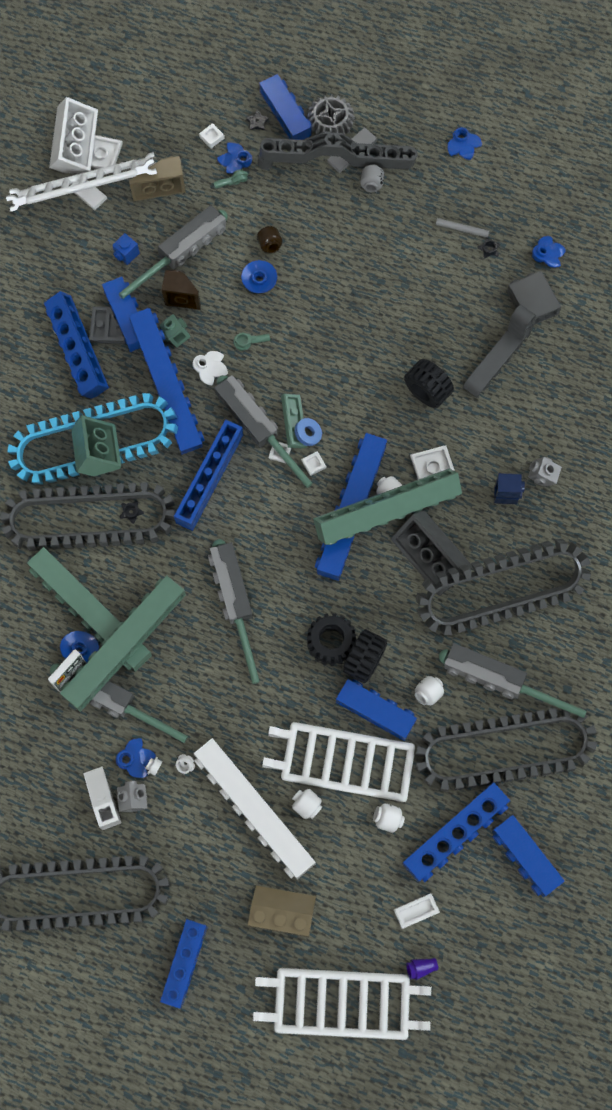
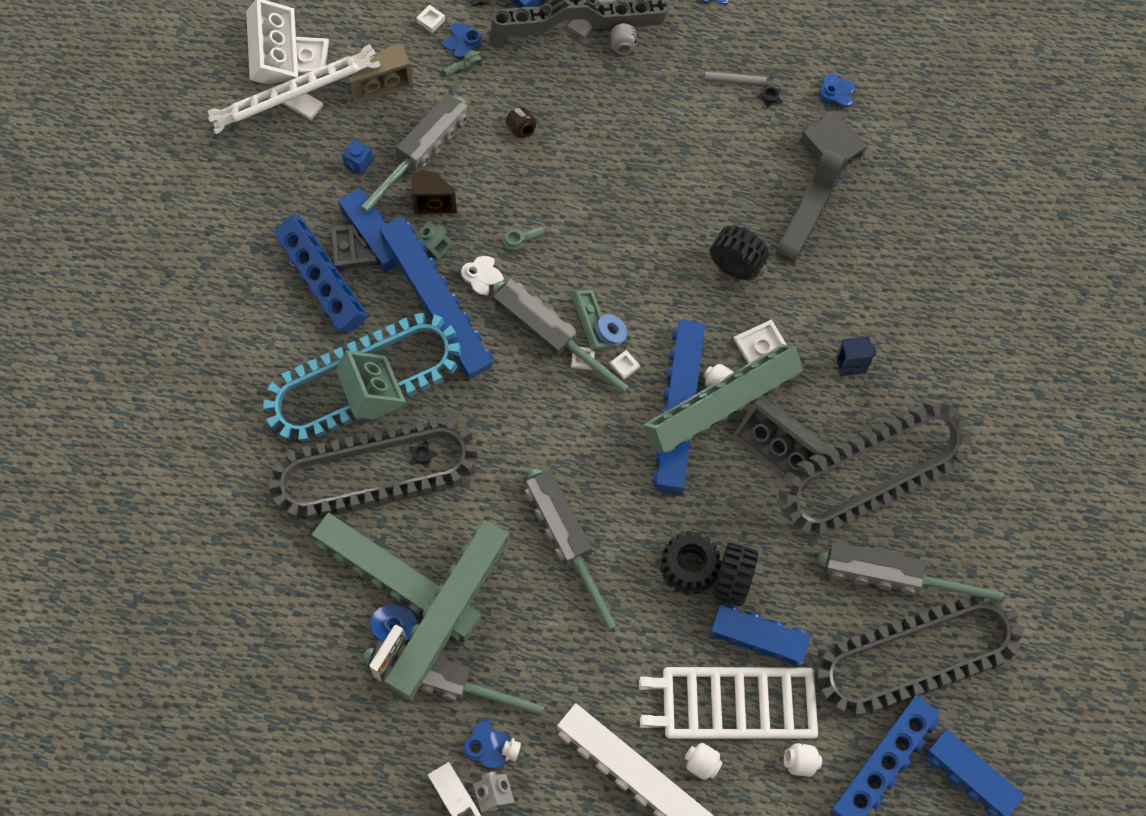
camera: 15 degrees left, 5 degrees down
(182, 767) = (548, 746): white plate -> none
(208, 475) = (507, 397): blue brick -> none
(259, 269) = (518, 157): blue dish -> none
(429, 690) = (816, 602): white head -> none
(544, 471) = (890, 331): light grey brick -> none

